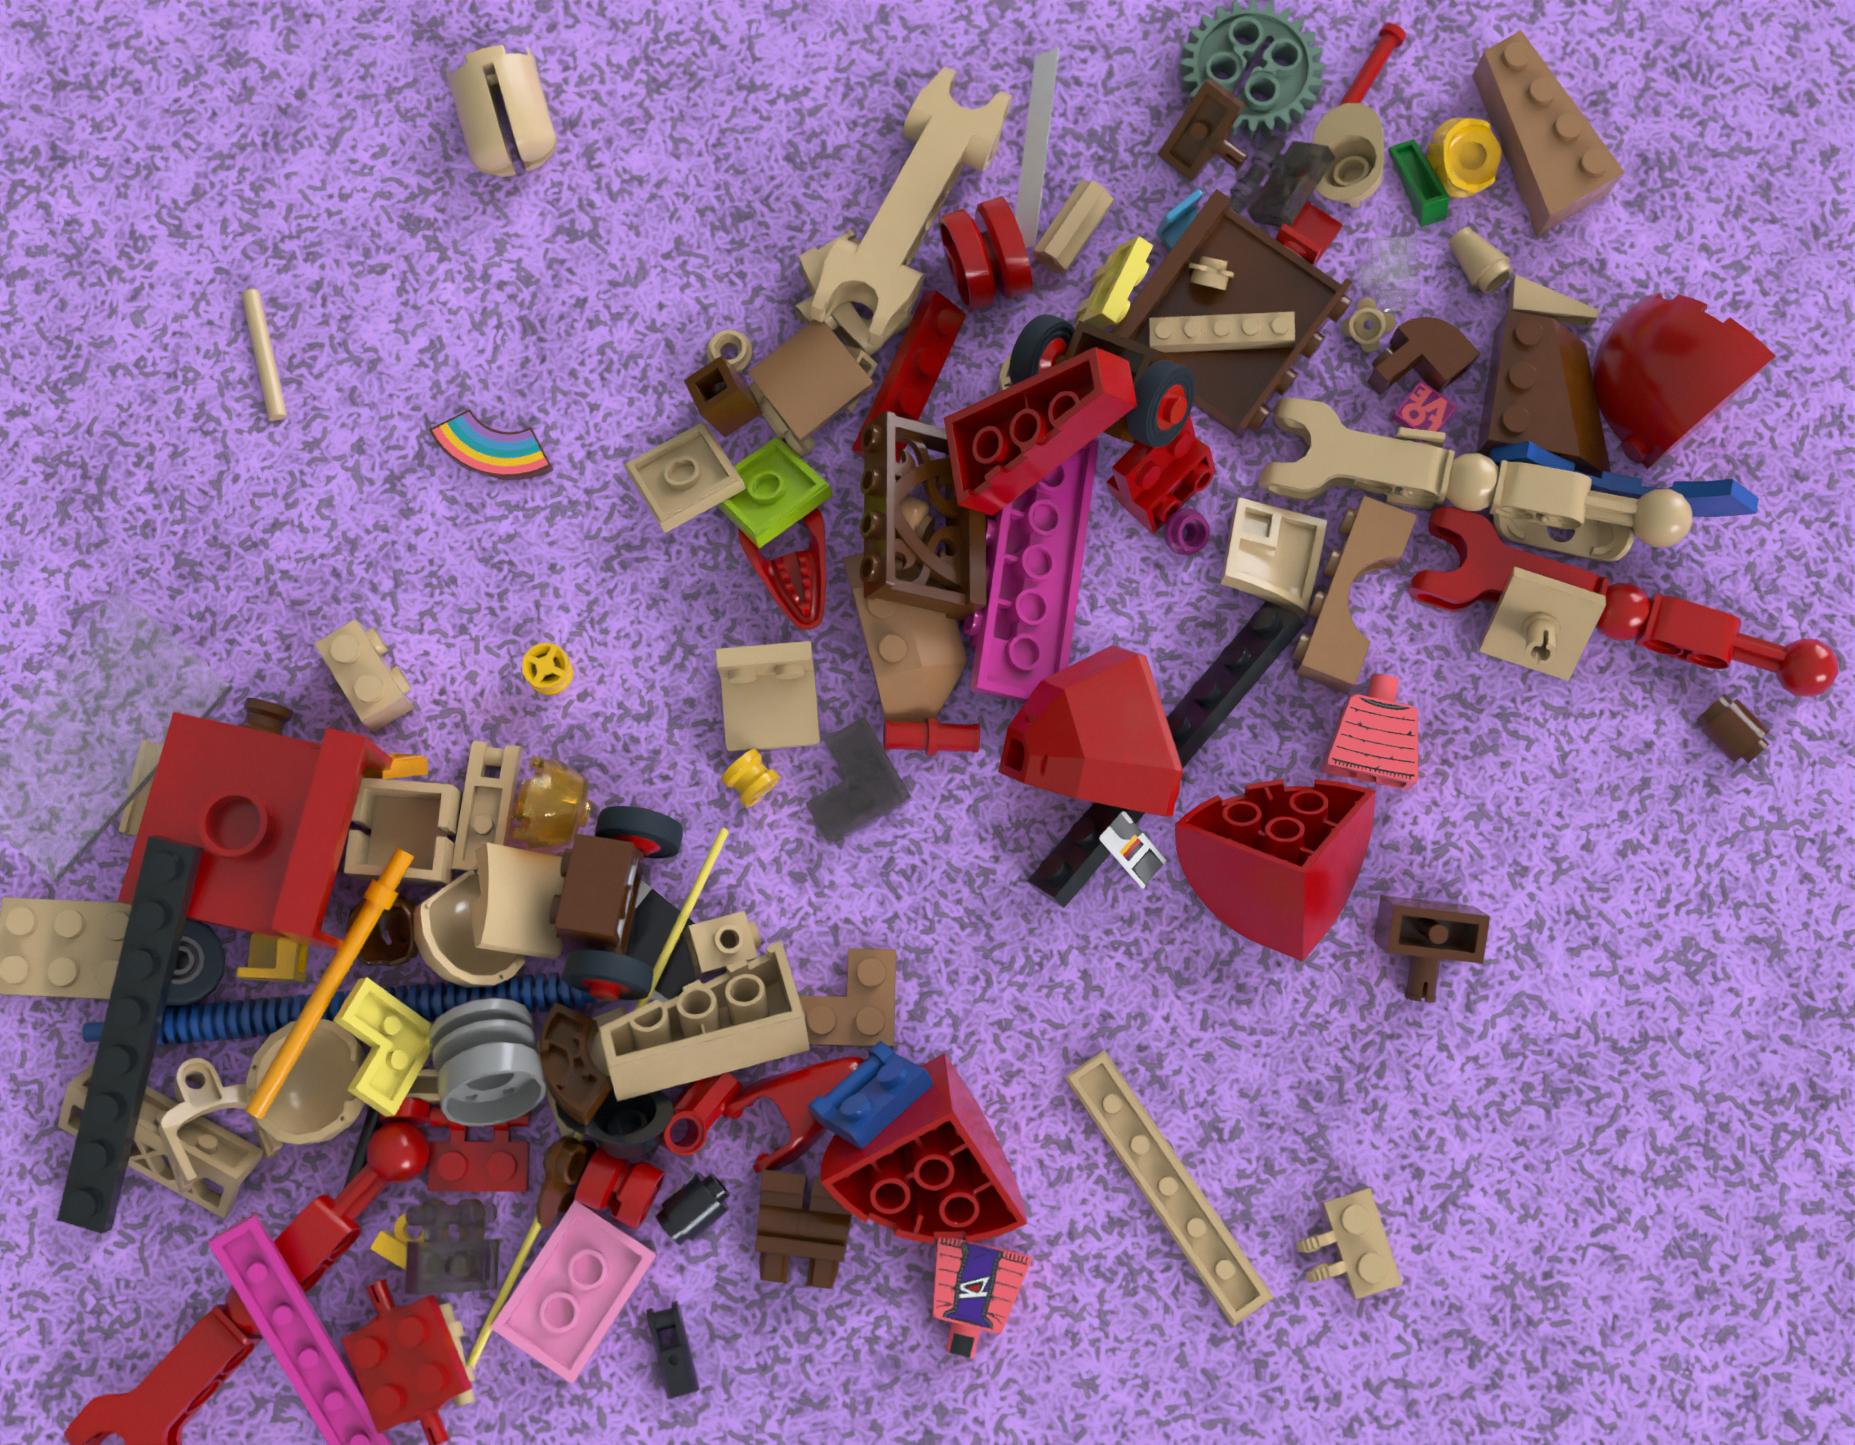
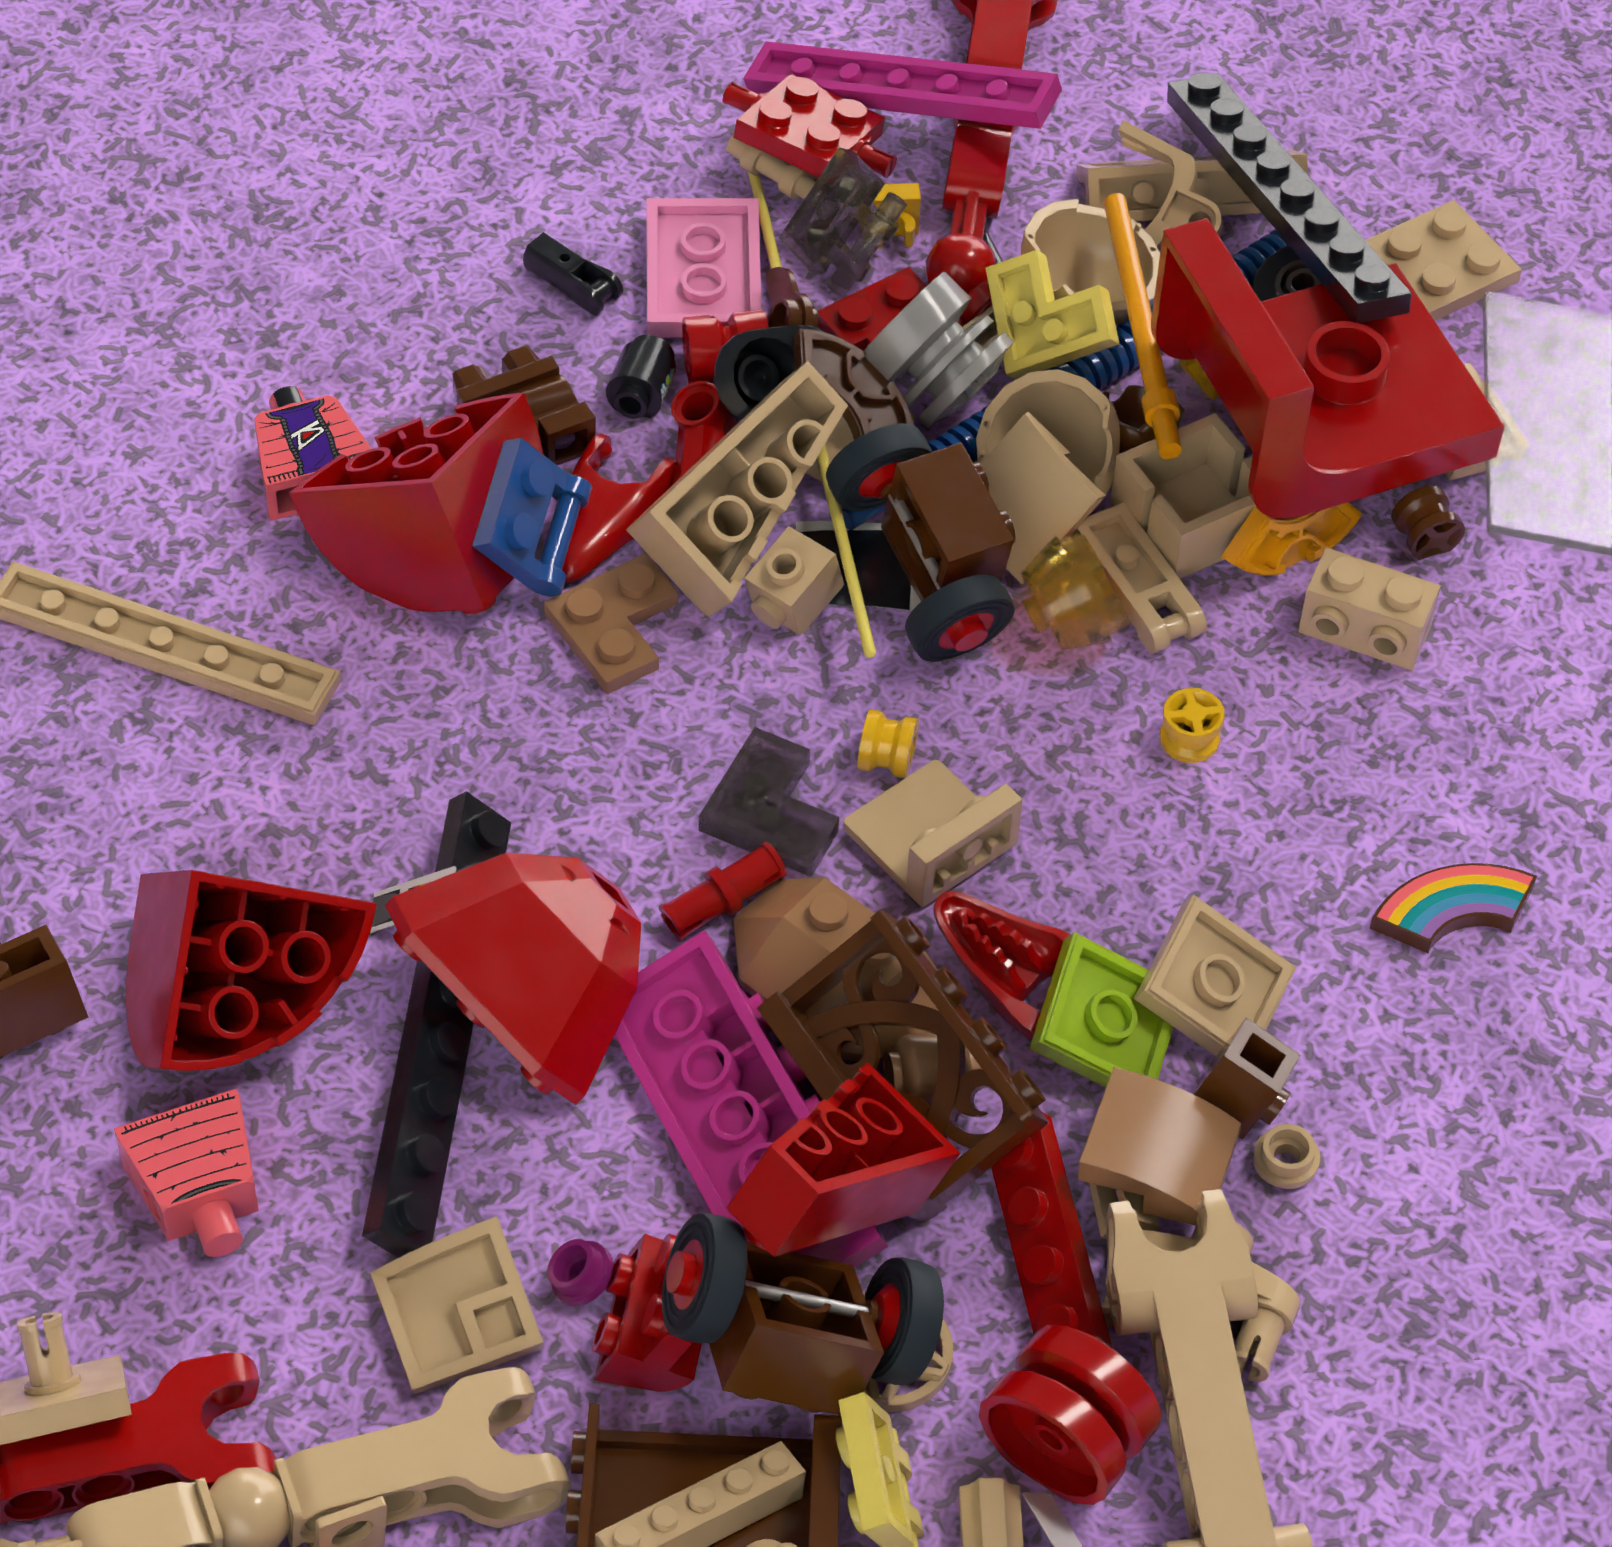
camera: 145 degrees right, 25 degrees down
(1335, 646) = (309, 1247): medium nougat arch -> none

